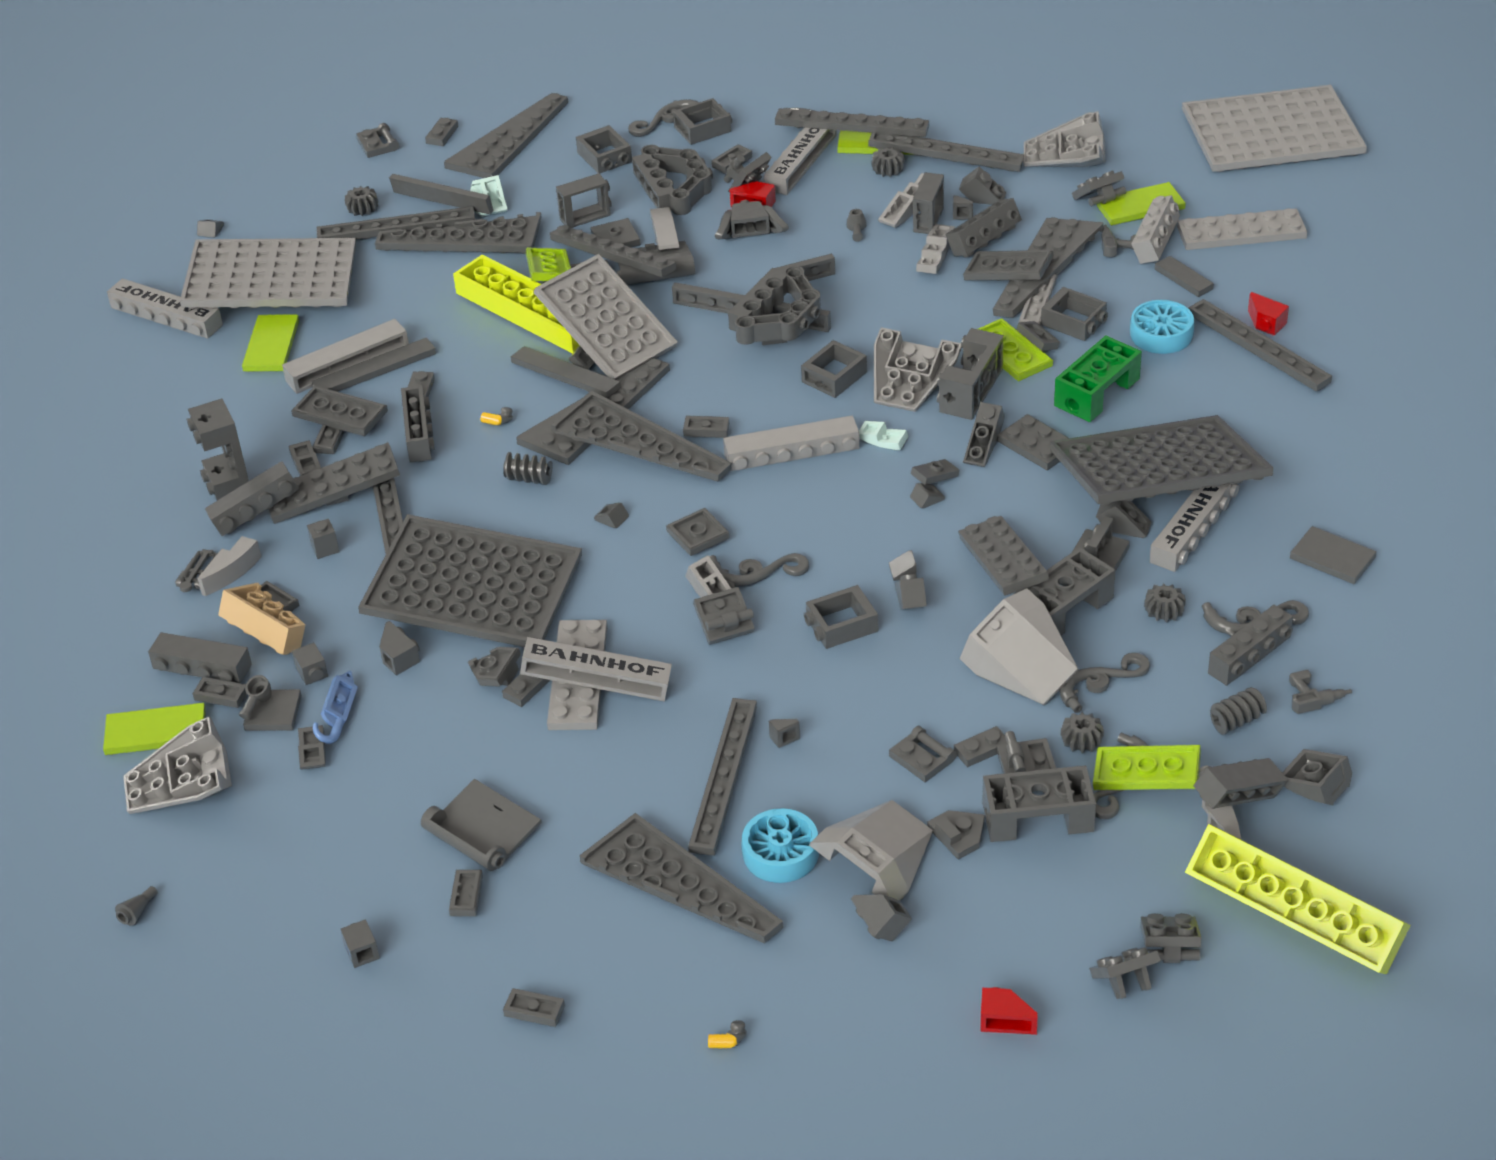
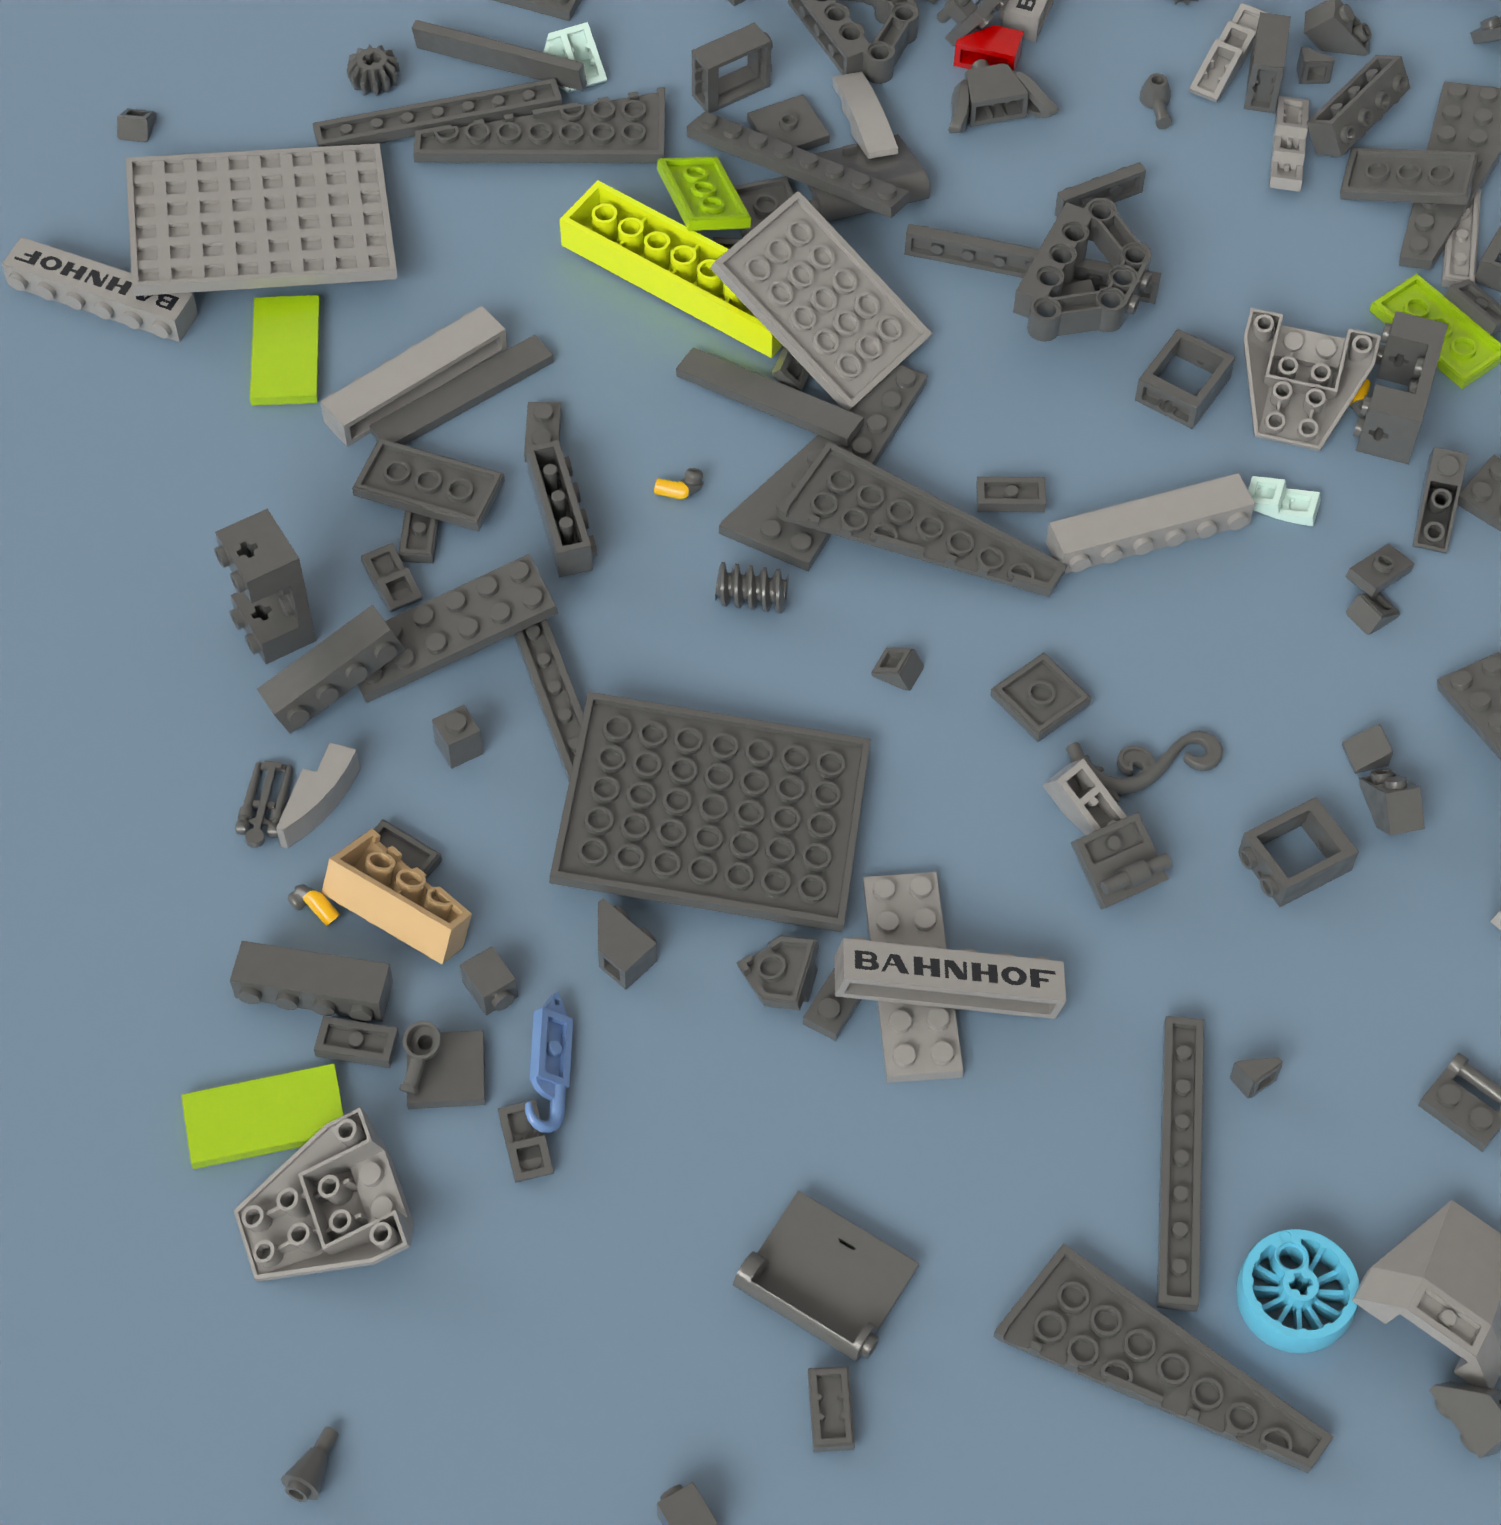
camera: 10 degrees left, 15 degrees up
(209, 617) = (315, 900): none -> yellow arm

